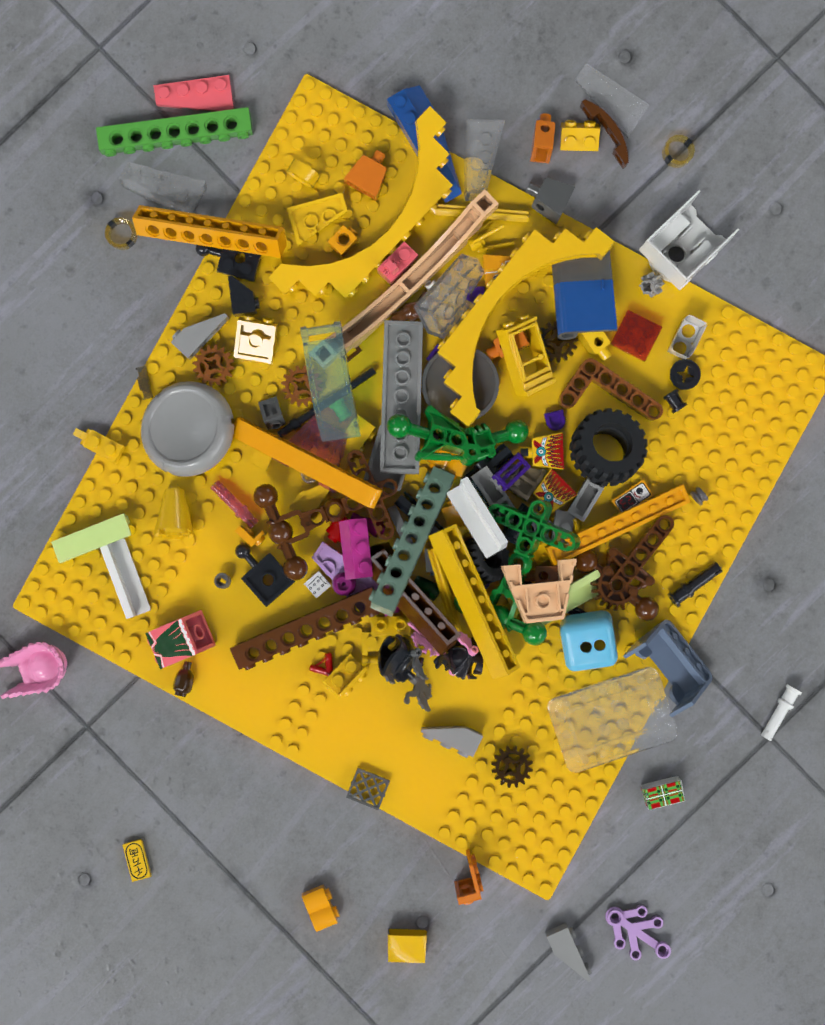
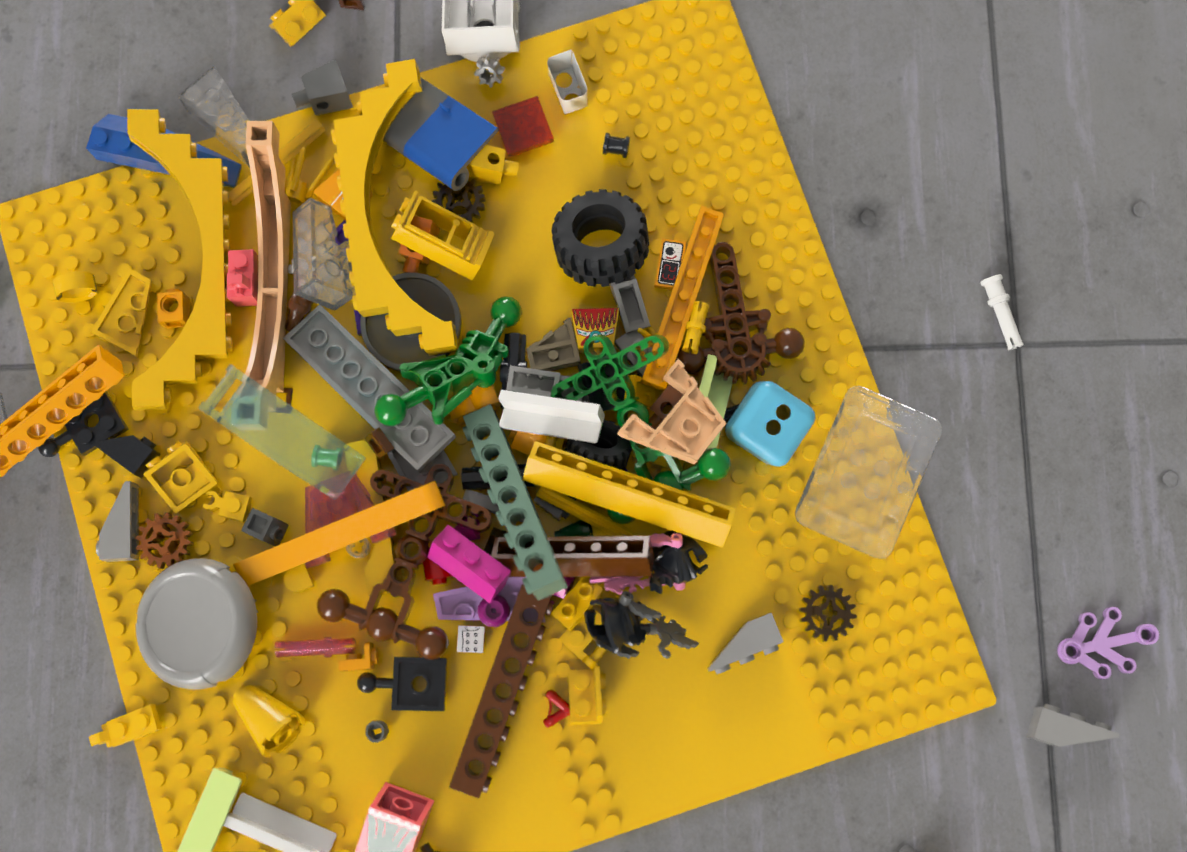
camera: 45 degrees left, 10 degrees down
(144, 383) = (114, 625): clear smoke piece -> none
(266, 383) = (231, 505): none -> yellow plate
(295, 424) = (297, 514): black bar -> none
(297, 394) = (256, 476): dark orange gear -> none
(363, 801) = (701, 790): dark grey window -> none
(368, 175) = (138, 232): orange torso -> none
(375, 434) = (379, 442): none -> reddish brown tile
(469, 889) = (916, 769): orange bracket -> none
(501, 481) = (537, 364): dark purple tile -> none
(543, 139) = (260, 44): orange torso -> none
(546, 452) = (551, 302): torso -> none
(555, 420) = (530, 269): dark purple tile -> none
(605, 549) = (695, 327): none -> yellow pin
(610, 388) = (549, 191): dark orange beam -> none
(663, 792) = (985, 490): piece -> none
(676, 661) = (869, 363): sand blue windscreen -> none
(687, 589) = (805, 290): black pin -> none
(692, 369) = (603, 106): black gear -> none
(699, 496) = (725, 202): dark grey bush -> none

